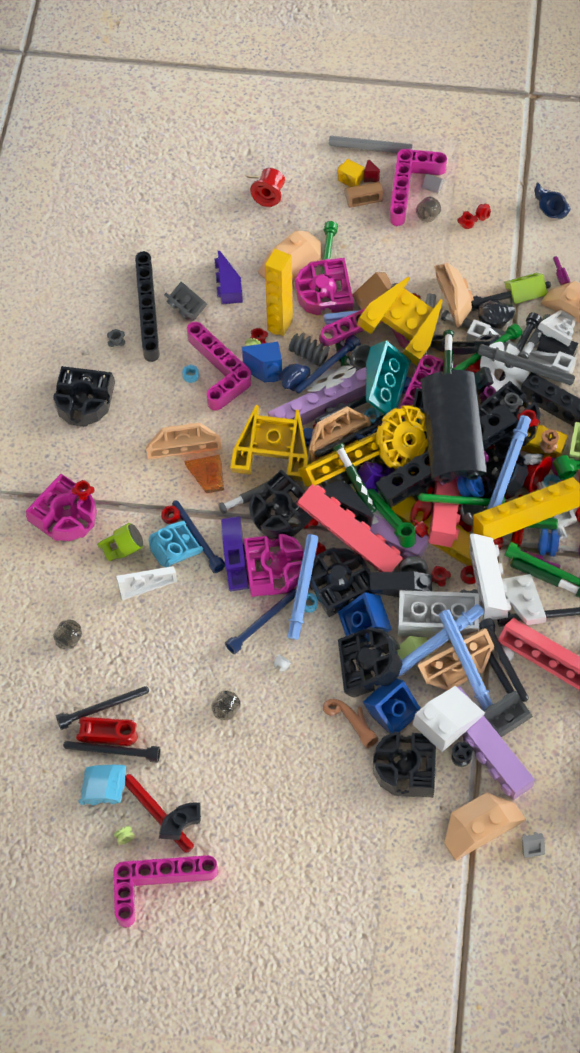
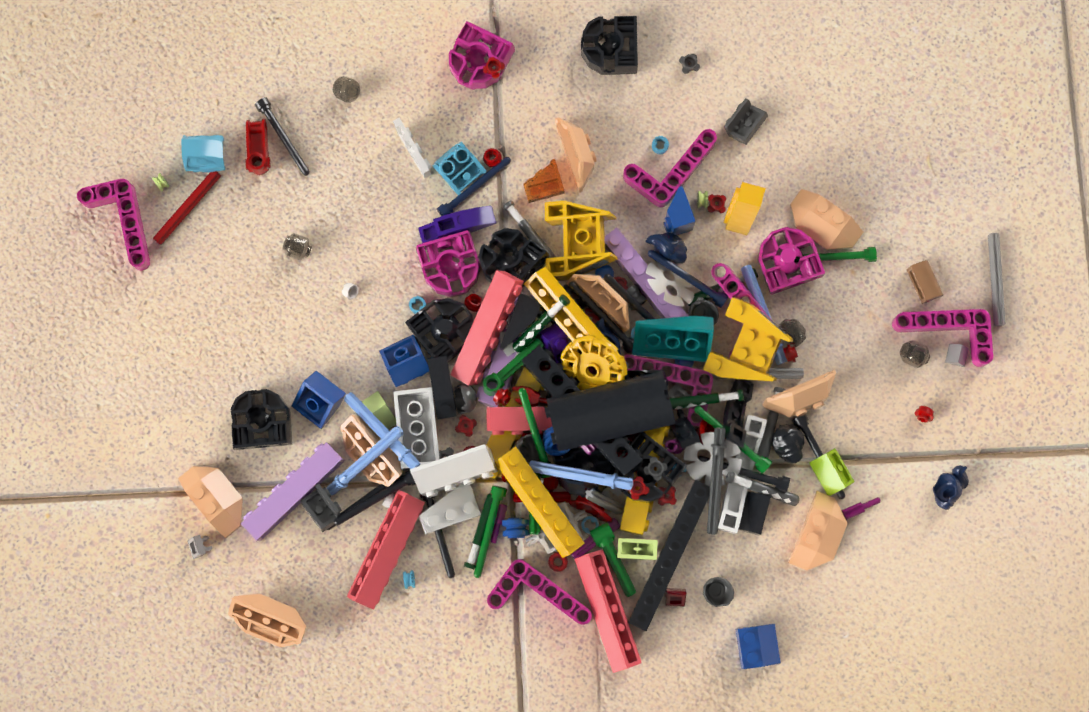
camera: 85 degrees right, 20 degrees up
(127, 539) = (452, 119): lime piece -> none
(147, 306) = (739, 78): black beam -> none
(151, 754) = (242, 190): black piece -> none
(179, 819) = (179, 225): black tile -> none
(230, 281) = (775, 162): dark purple slope -> none
(234, 644) = (363, 244): dark blue piece -> none
(267, 189) = (909, 179): red piece -> none
(302, 587) = (425, 295): light blue axle -> none
(309, 350) = (706, 256): dark grey piece -> none
(350, 173) = (948, 263): yellow brick -> none
(367, 660) = (344, 369): black connector -> none
(367, 736) = (301, 369): nougat plant -> none
(371, 172) = (954, 284): dark red slope -> none
(372, 289) = (788, 310): medium nougat brick -> none
(447, 717) = (302, 451): white slope -> none
(462, 749) = (275, 470): black wheel -> none
(467, 224) = (916, 398): red plate -> none
(546, 440) = (630, 511): nougat bush -> none
(559, 326) = (776, 511): white wing -> none

